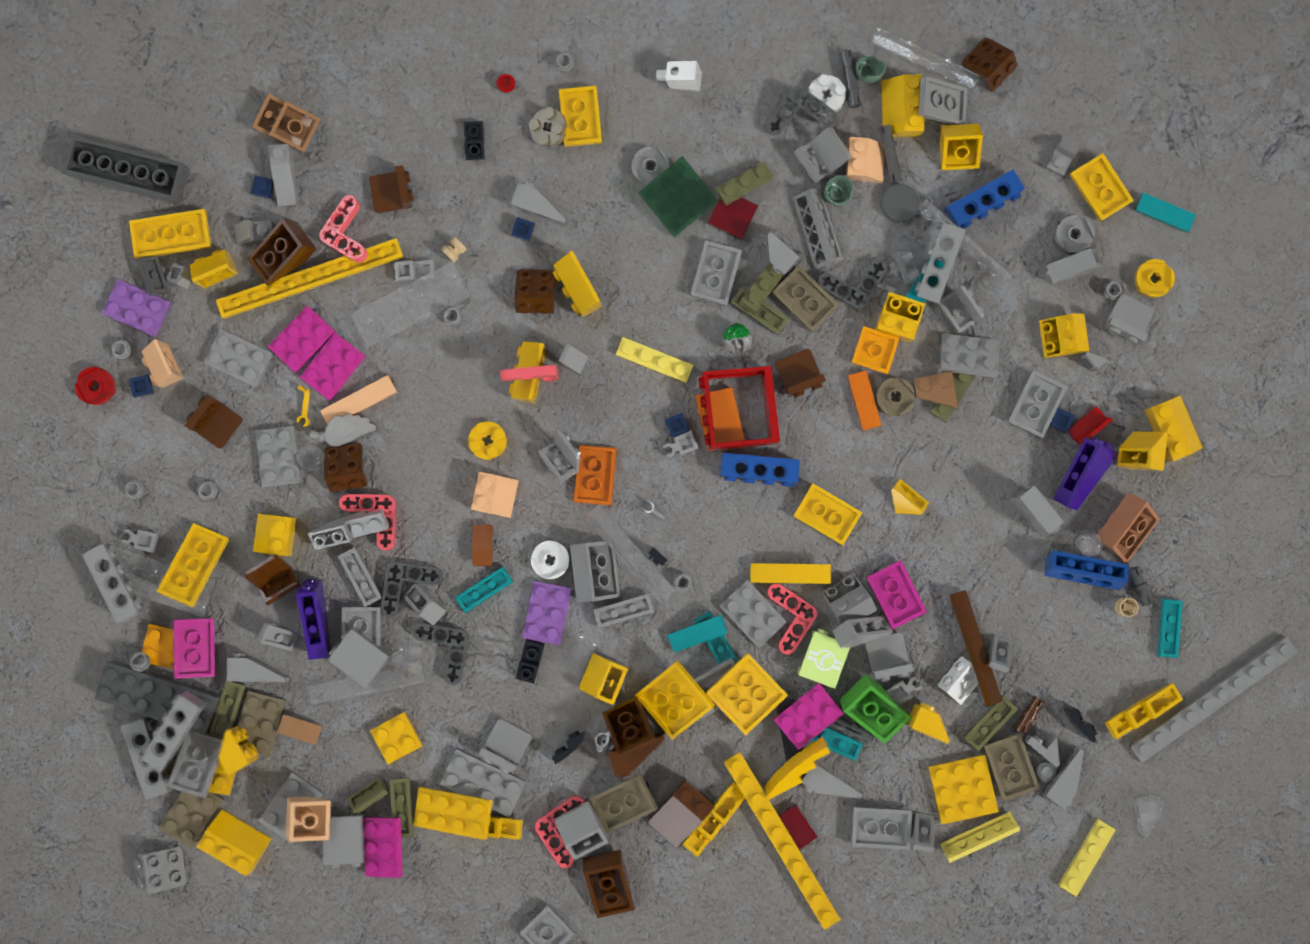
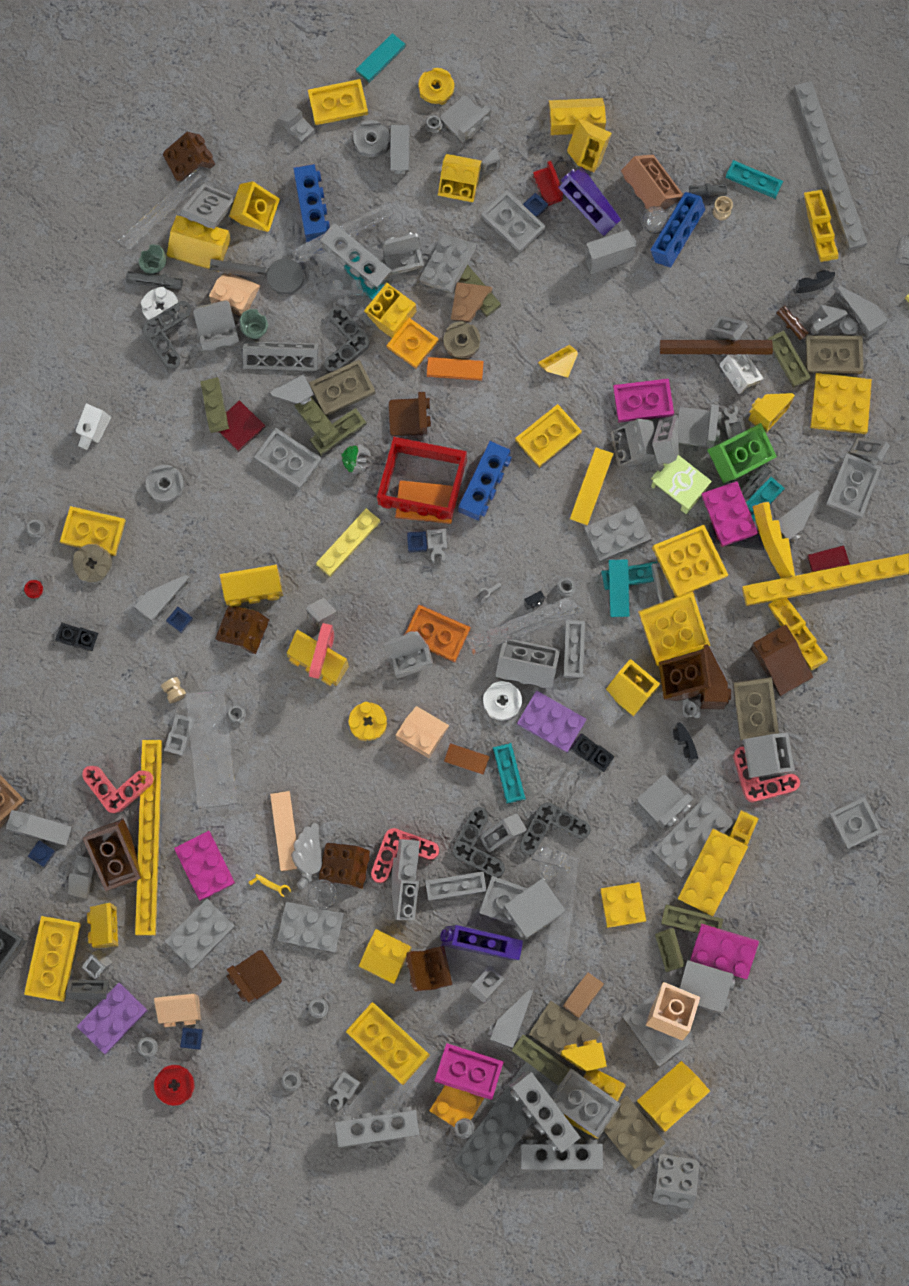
camera: 70 degrees left, 10 degrees down
(332, 366) = (242, 845): dark pink plate -> none
(391, 190) = (94, 729): reddish brown bracket -> none
(608, 883) = (827, 749): reddish brown slope -> none
(677, 196) = (203, 467): clear green plate -> none
(799, 618) = (635, 493): coral beam -> none
(979, 837) = (889, 402): light yellow plate -> none

